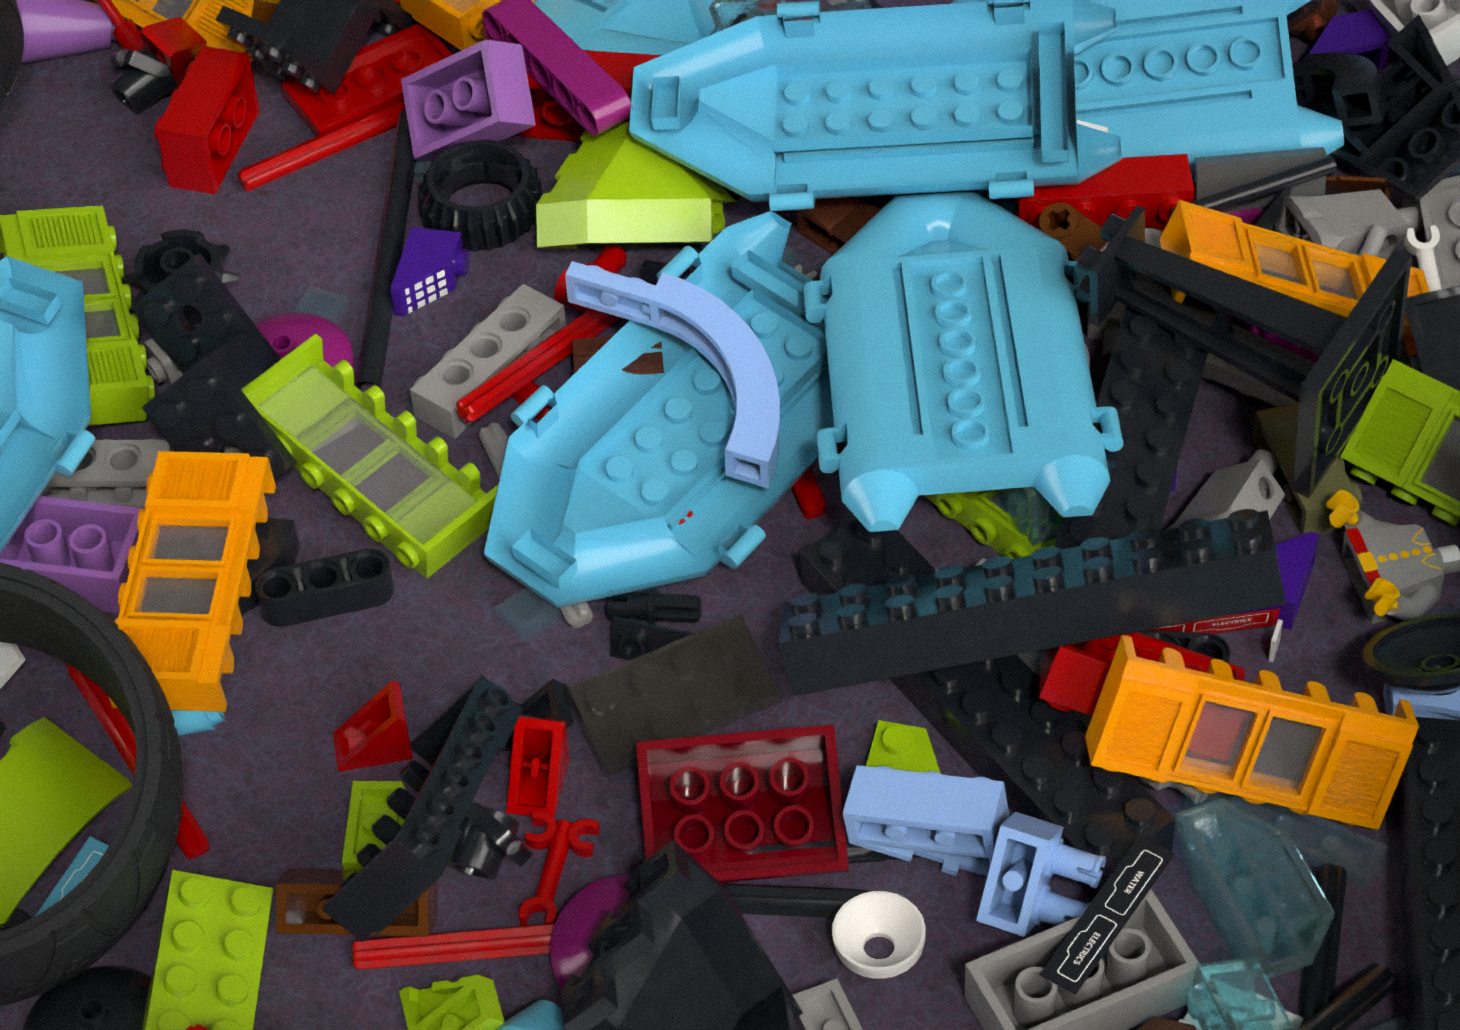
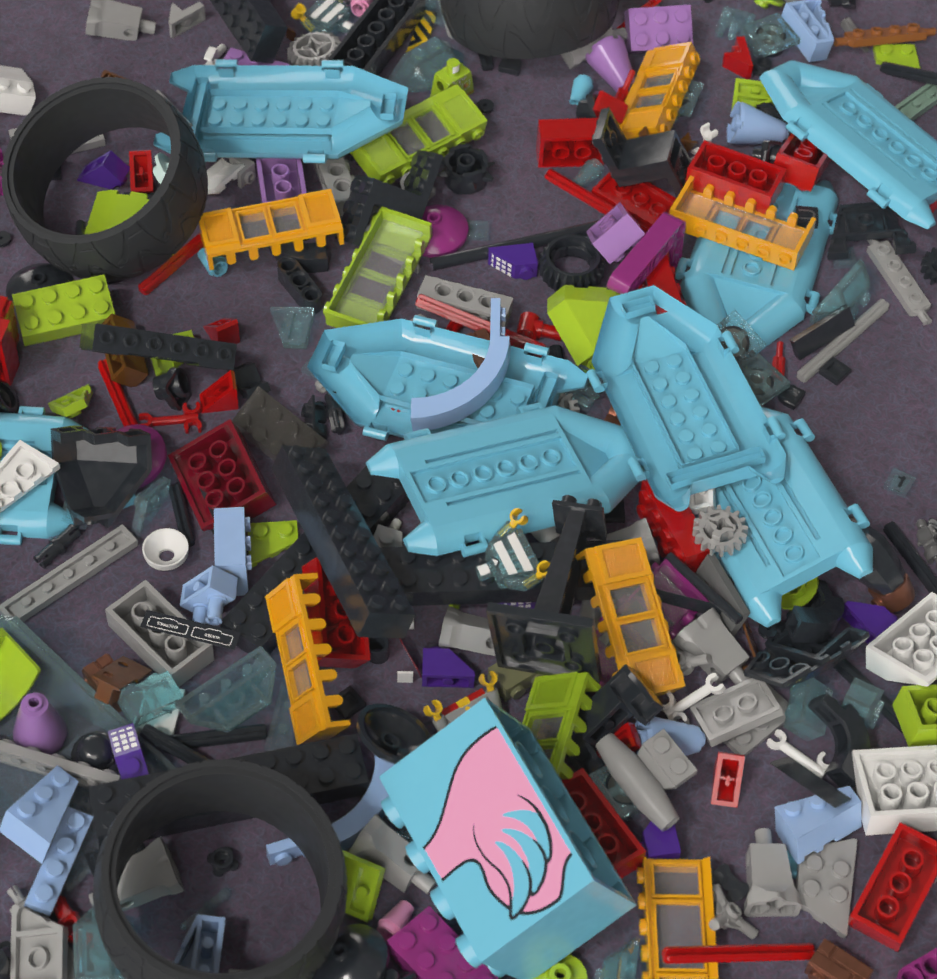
camera: 65 degrees right, 5 degrees up
(74, 87) = (581, 87): none -> medium azure cone
(274, 124) = (589, 172): none -> clear light blue cone
(414, 623) = (293, 325): none -> clear light blue wing
(777, 939) = (149, 503): none -> clear light blue wing
(1071, 229) = (626, 515): reddish brown piece -> none
(1156, 380) = (511, 558): none -> clear light blue torso
(1165, 130) = (720, 530): none -> light grey gear

